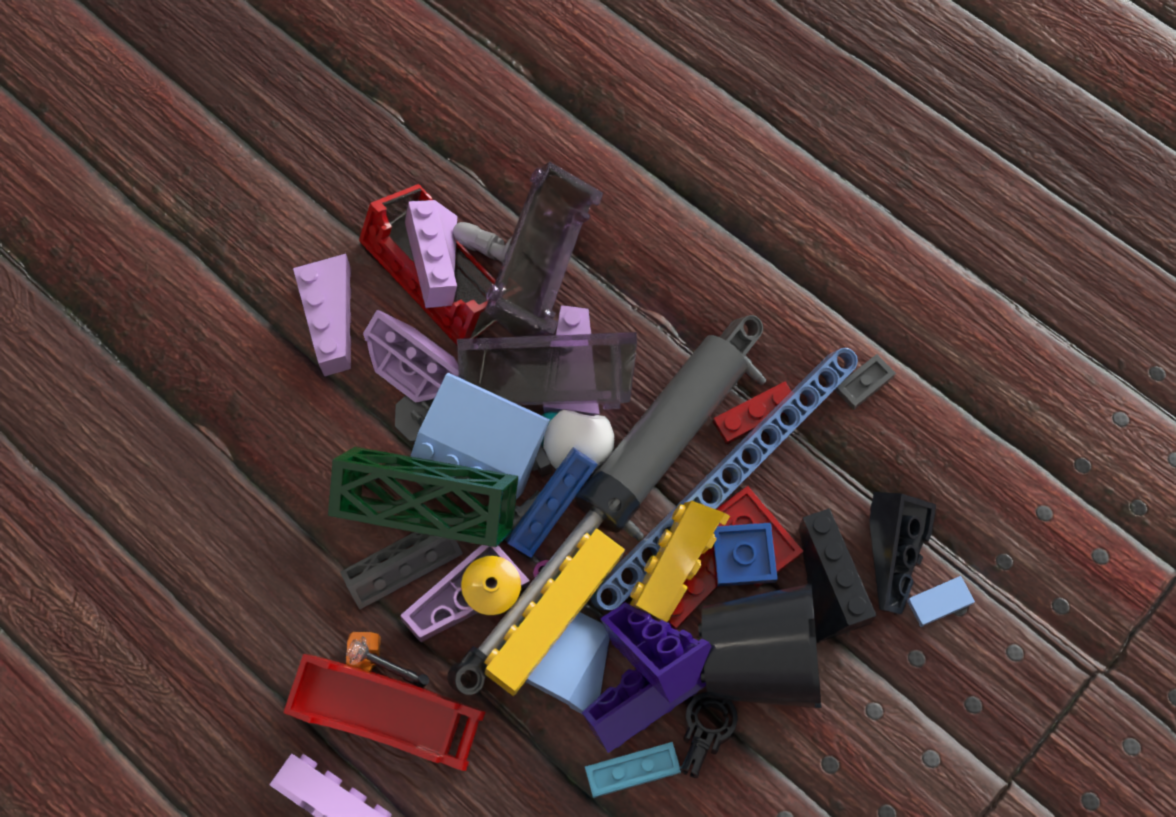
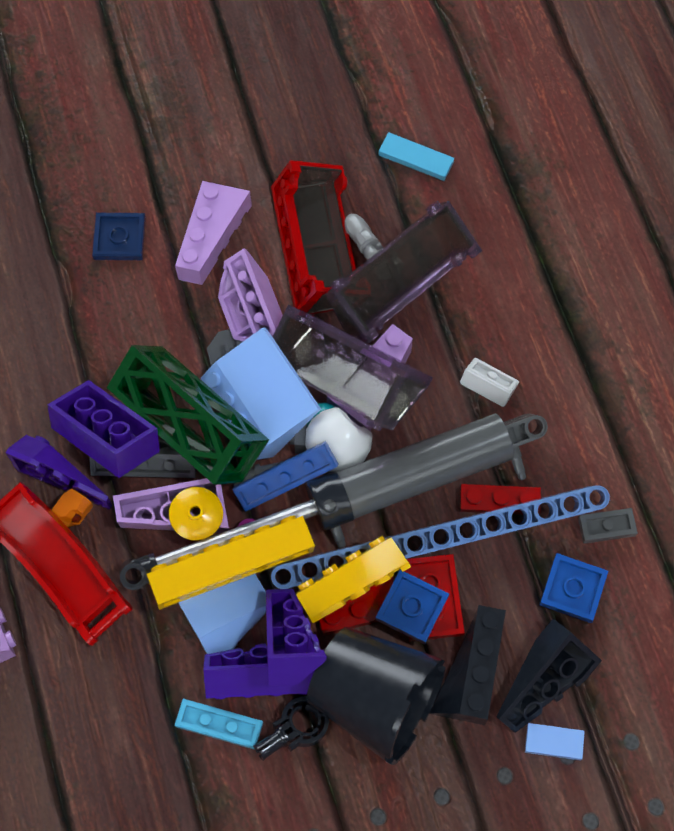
camera: 30 degrees right, 0 degrees up
(239, 366) = (119, 236): none -> dark blue tile
(309, 624) = (41, 461): none -> dark purple wedge
(349, 556) = (104, 428): none -> dark purple brick
(359, 651) = (65, 506): black piece -> none
(433, 250) = (320, 225): lavender wedge -> none
(479, 140) = (416, 156): none -> medium azure tile
(678, 312) = (489, 382): none -> white slope
(871, 454) = (574, 588): none -> blue plate

